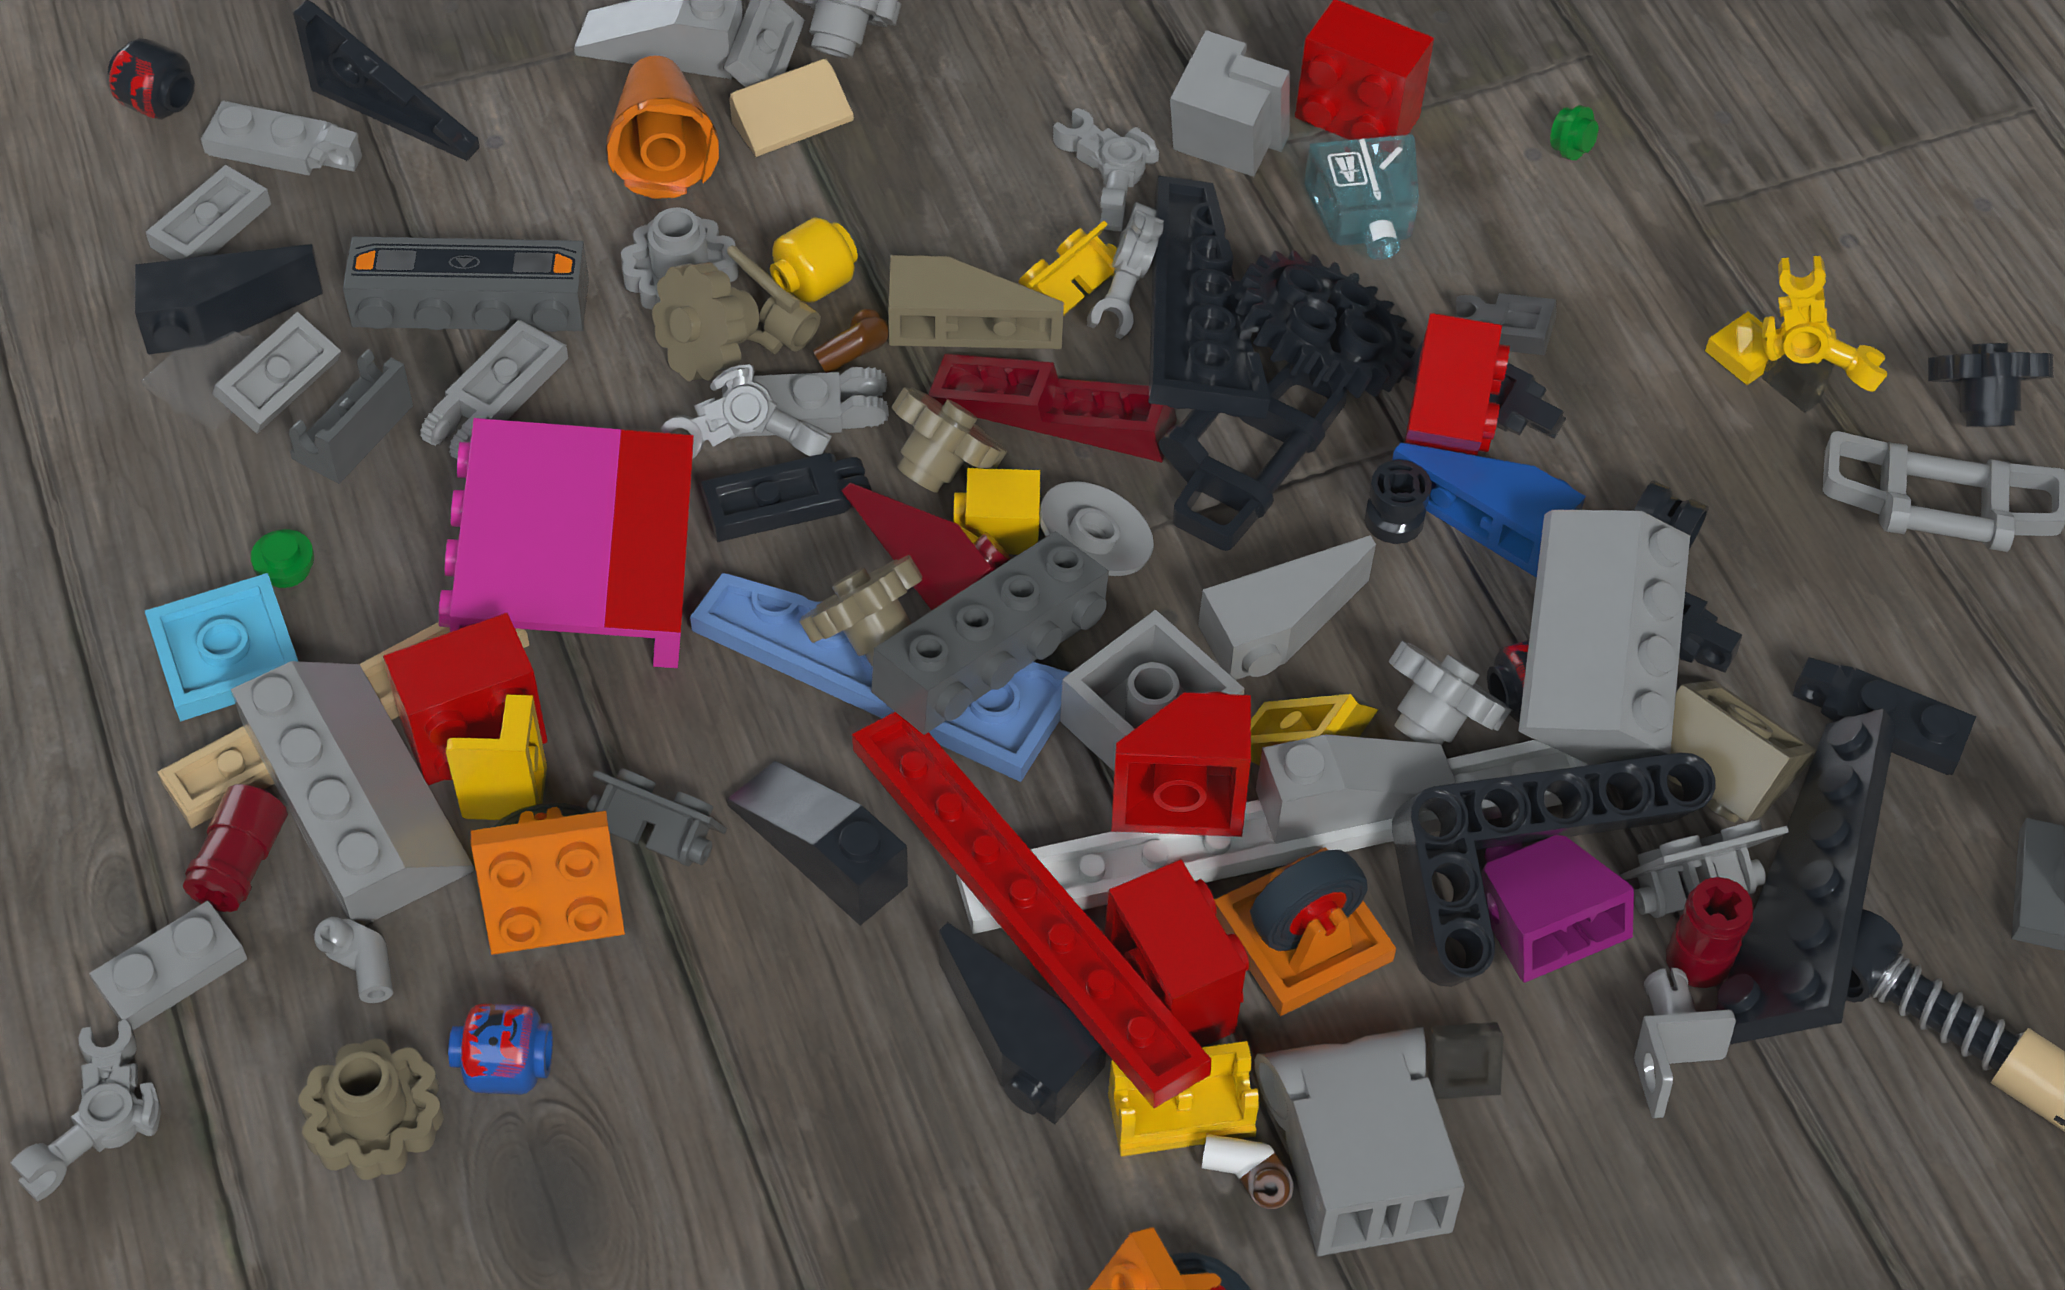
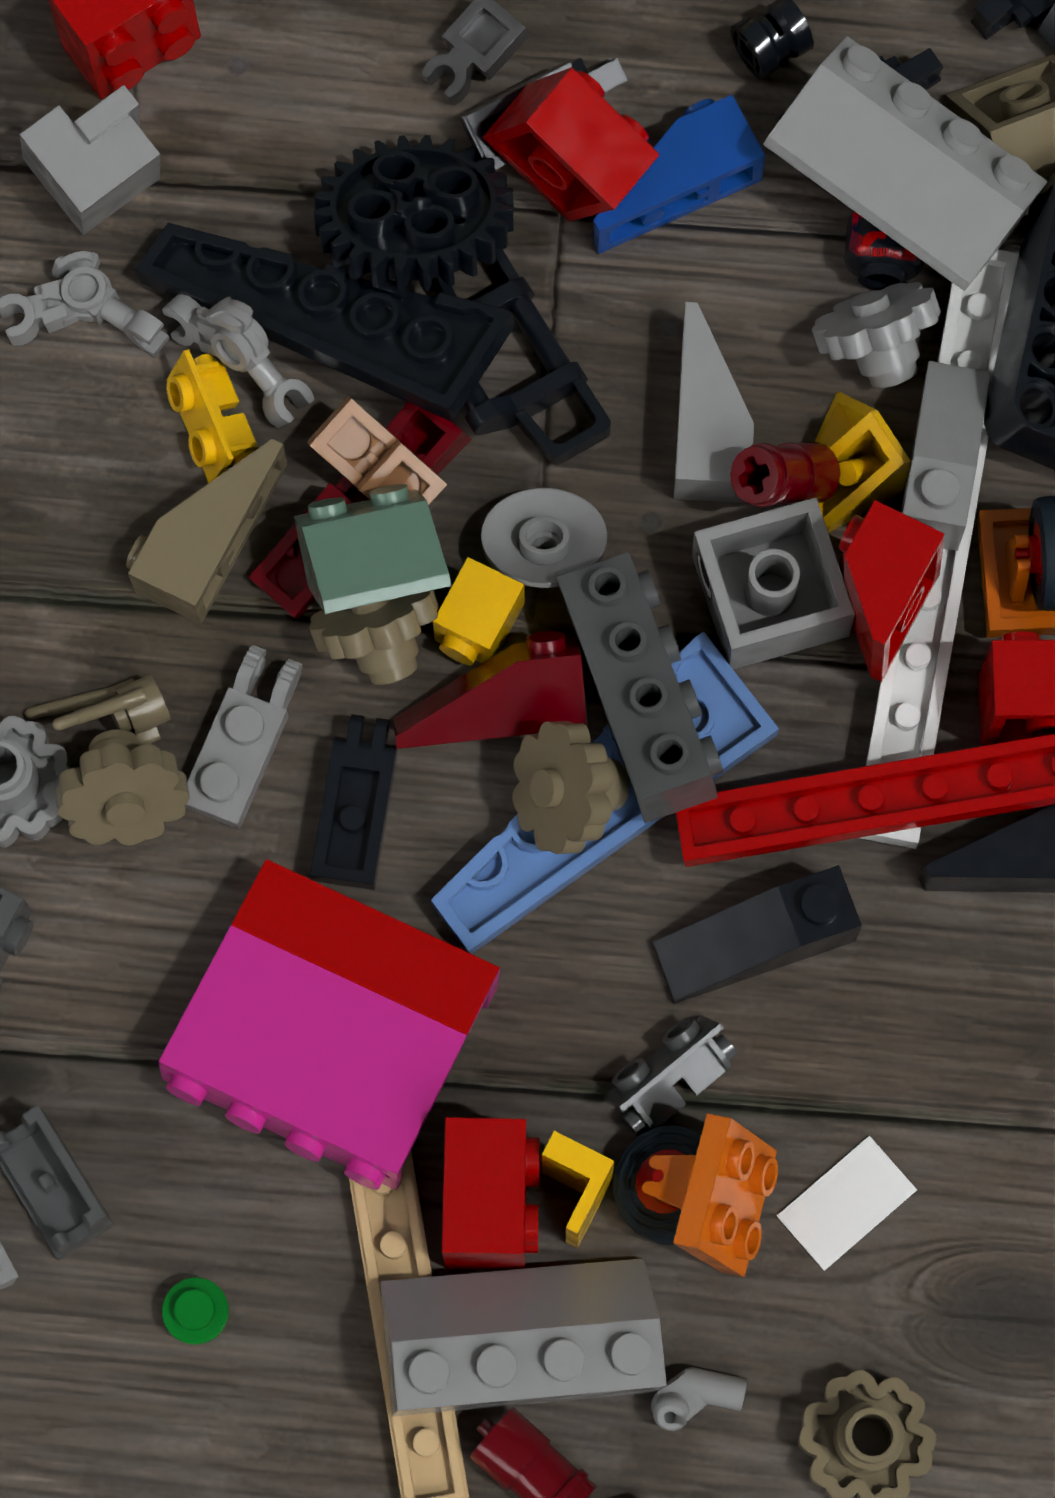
camera: 60 degrees left, 20 degrees up
(219, 643) = (284, 1404): medium azure plate -> none
(495, 384) = (79, 1021): light grey hinge -> none
(502, 1048) = (858, 1303): blue head -> none
(604, 1015) = (846, 1203): none -> white sticker
(745, 409) = (246, 796): light grey piece -> none
(813, 259) = (78, 649): yellow head -> none
(866, 334) = (198, 656): reddish brown arm -> none
(1001, 391) = (370, 549): none -> sand green slope
(1091, 383) = (371, 454): none -> medium nougat slope
(1256, 662) = (785, 473): none -> dark red piece
(1365, 191) = (255, 86): clear light blue torso -> none
(1397, 501) = (640, 270): black wheel -> none

